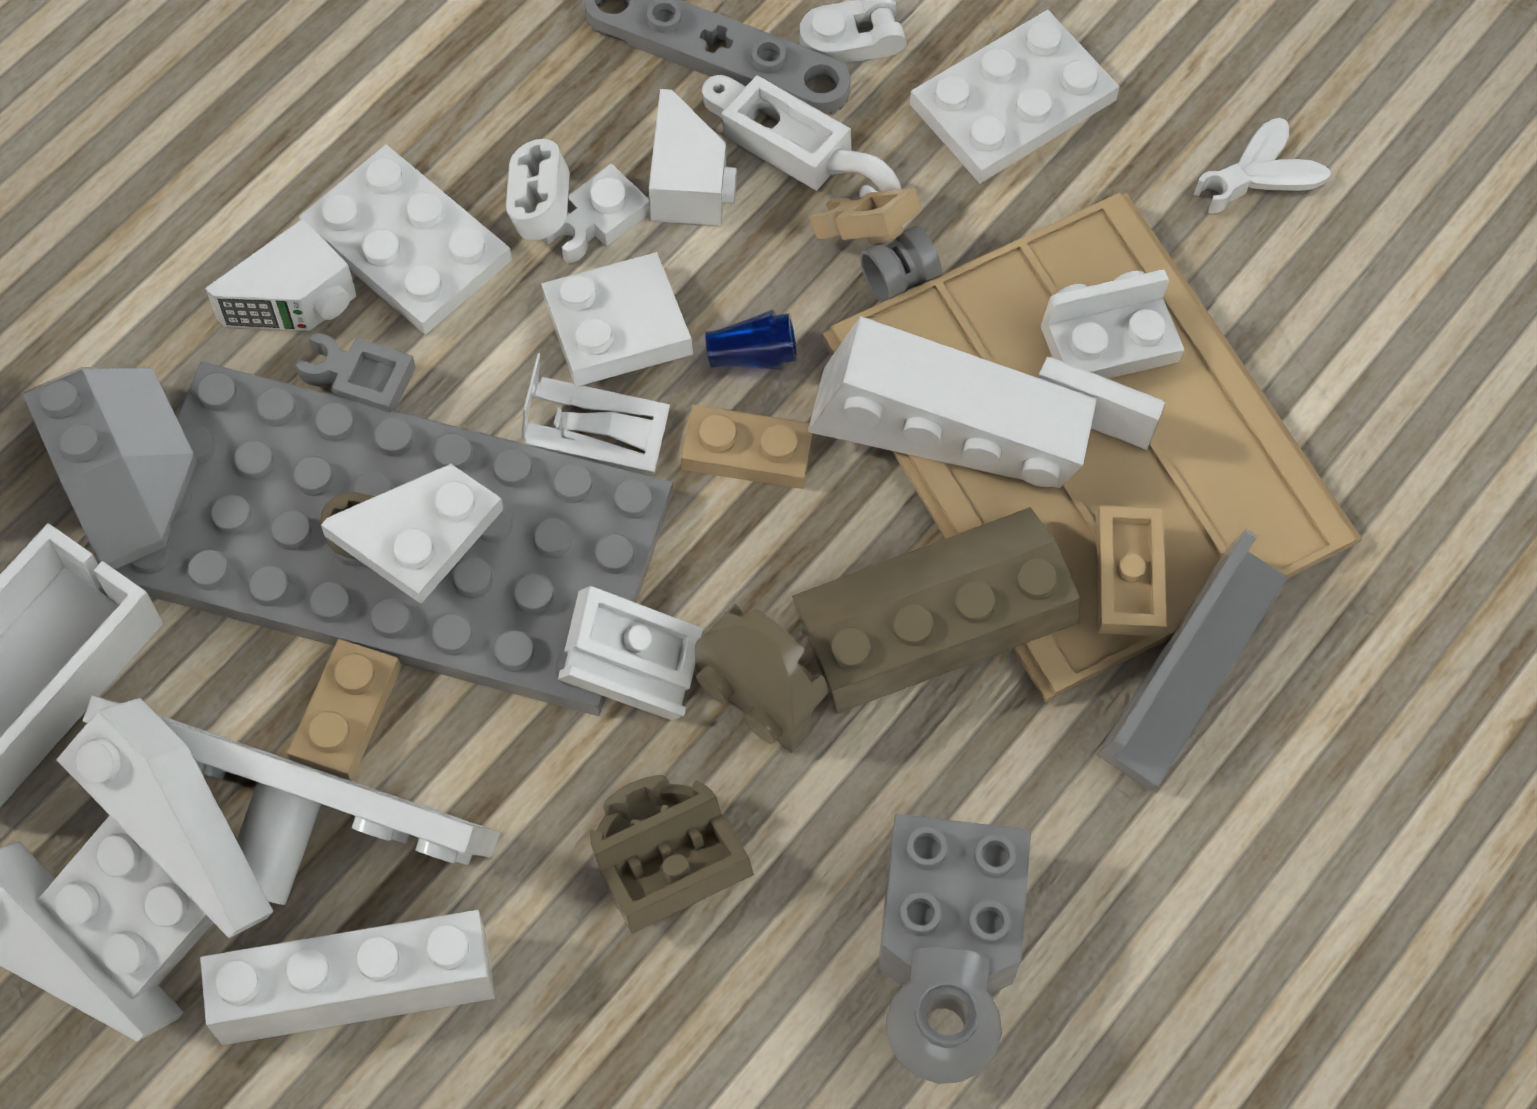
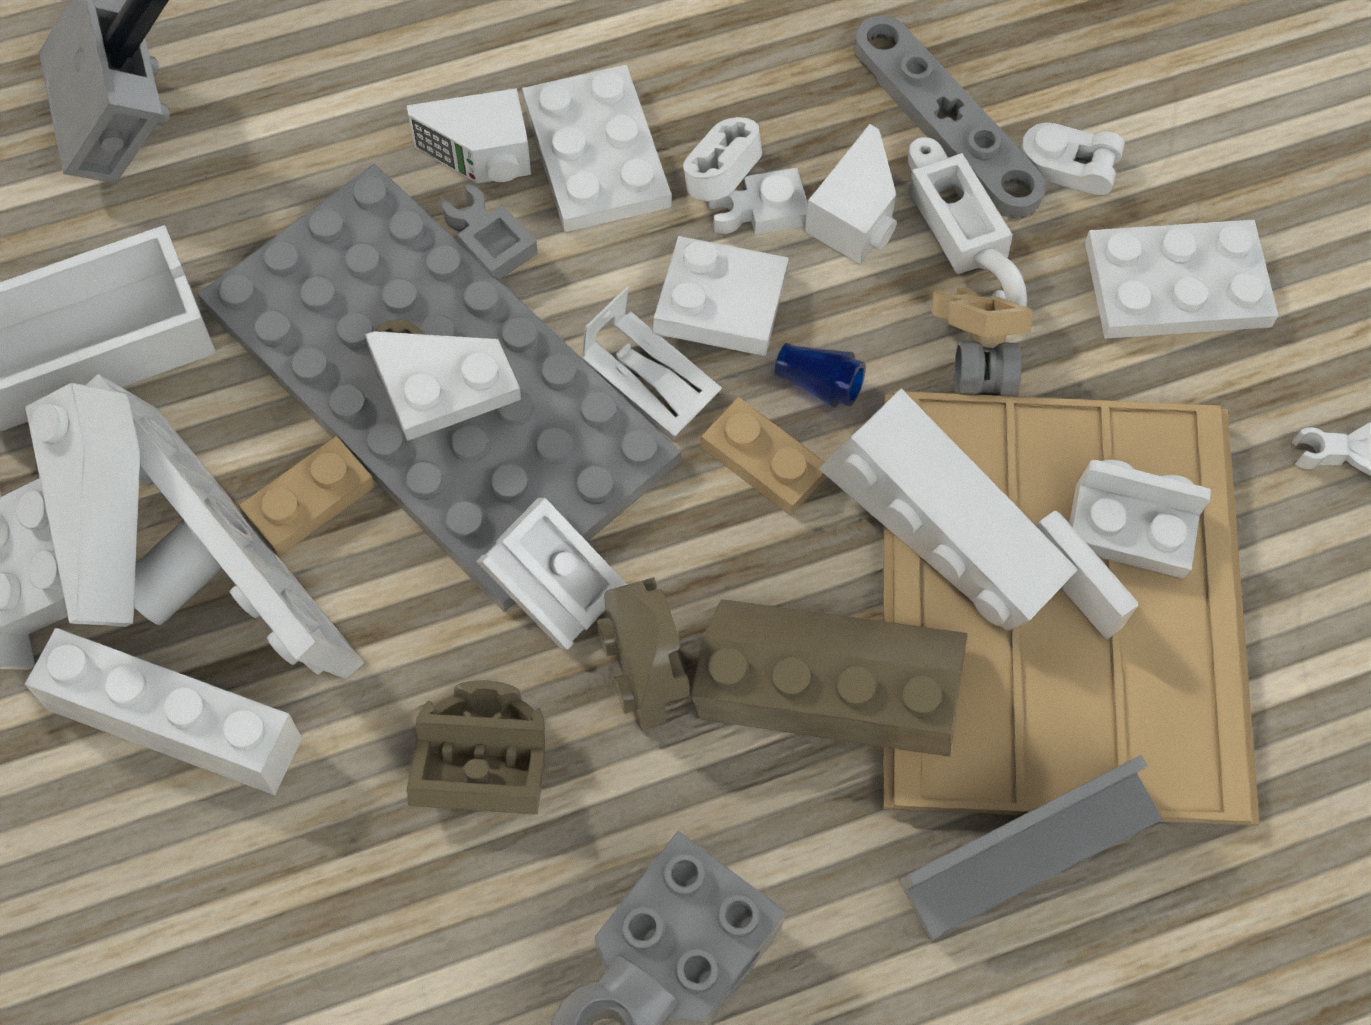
camera: 30 degrees right, 0 degrees up
(115, 456) = (252, 201): light grey wedge -> none
(1131, 570) = (1022, 736): tan plate -> none

